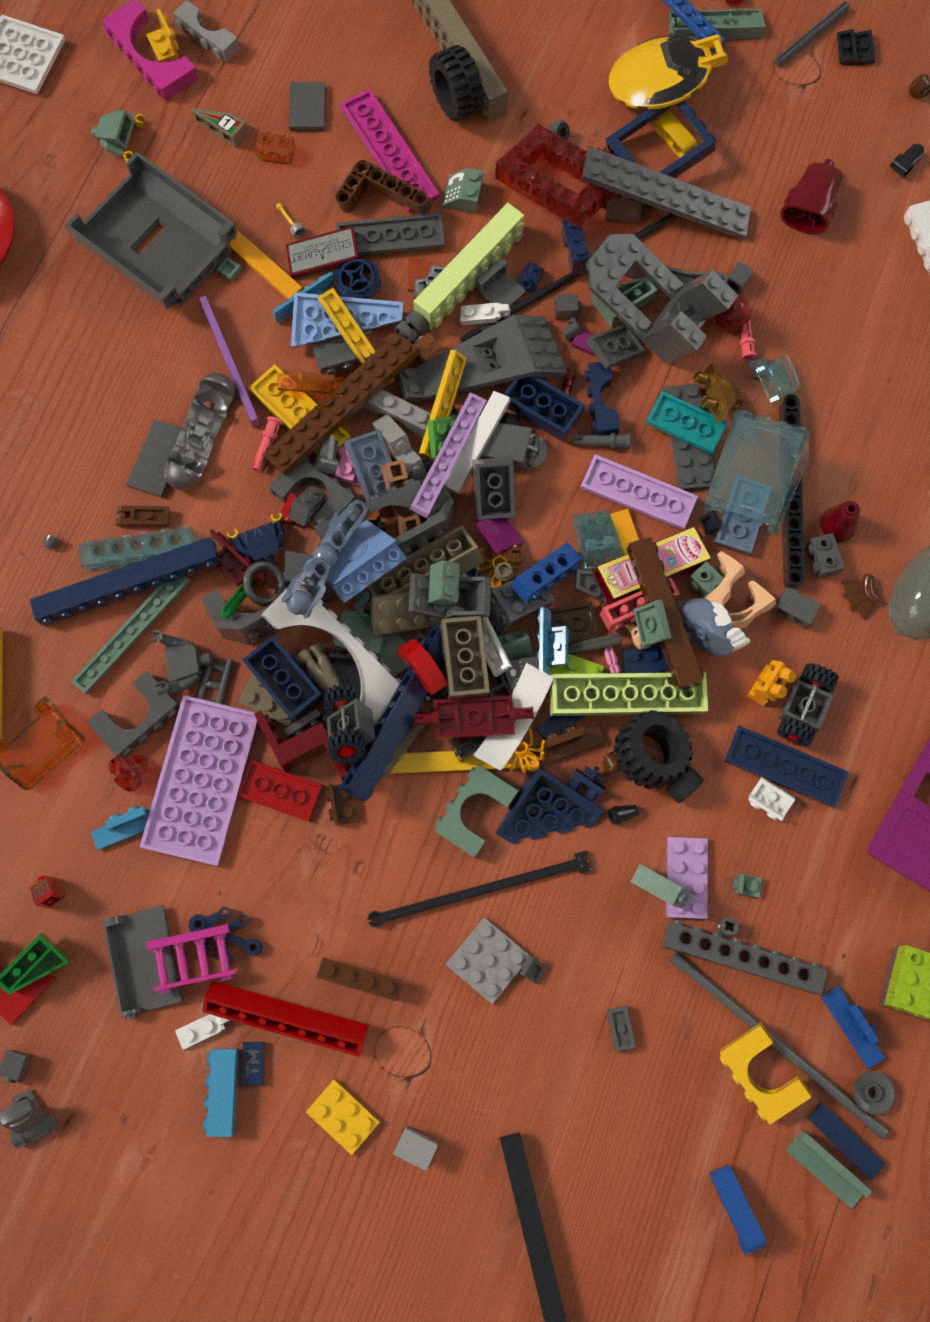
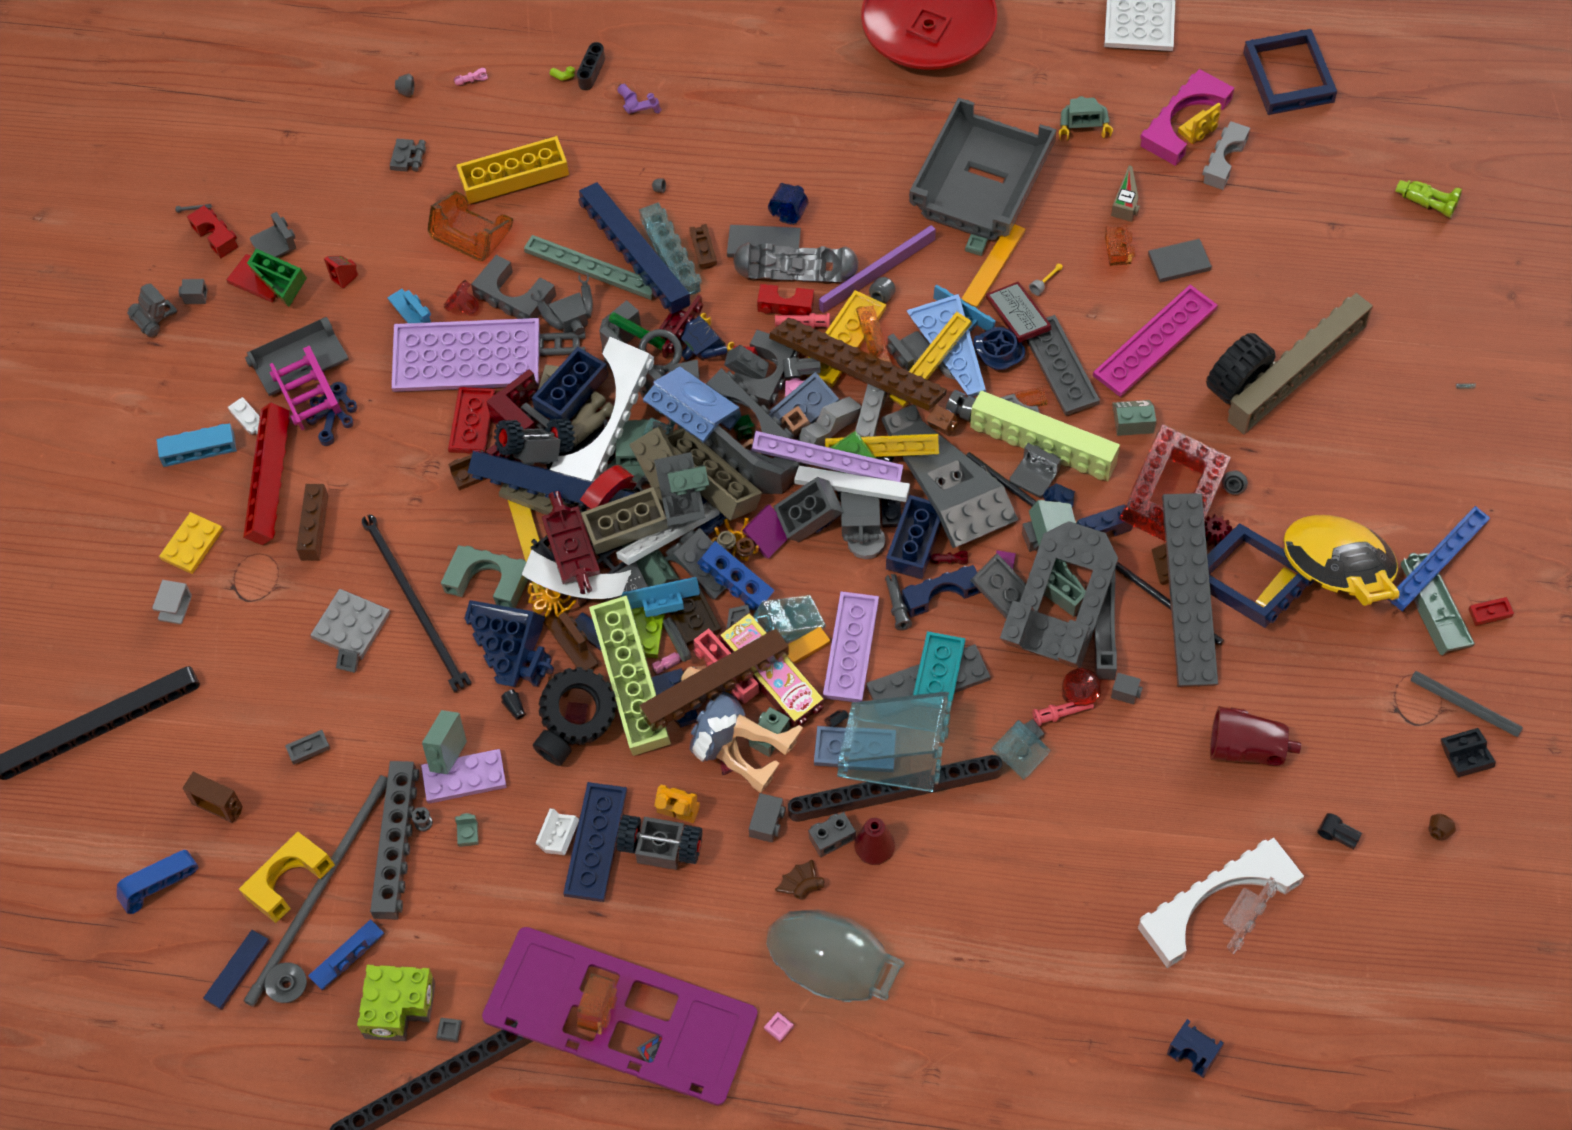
camera: 80 degrees right, 15 degrees down
(125, 420) = (788, 203): none -> clear blue brick
(234, 468) = (771, 302): none -> red arch
(253, 1063) = (225, 463): dark blue tile -> none
(256, 363) = (882, 289): none -> dark grey head
(324, 558) = (678, 369): sand blue piece -> none
(383, 185) = (1114, 326): reddish brown beam -> none
(483, 313) = (1001, 463): white hinge -> none
(568, 283) = (1049, 515): none -> brick
(572, 329) = (1013, 548): dark grey tile -> none
(652, 623) = (698, 666): sand green tile -> none
(663, 1135) = (212, 797): none -> reddish brown window
(719, 391) = (978, 696): pearl gold connector -> none
(827, 1169) = (208, 957): sand green panel -> none

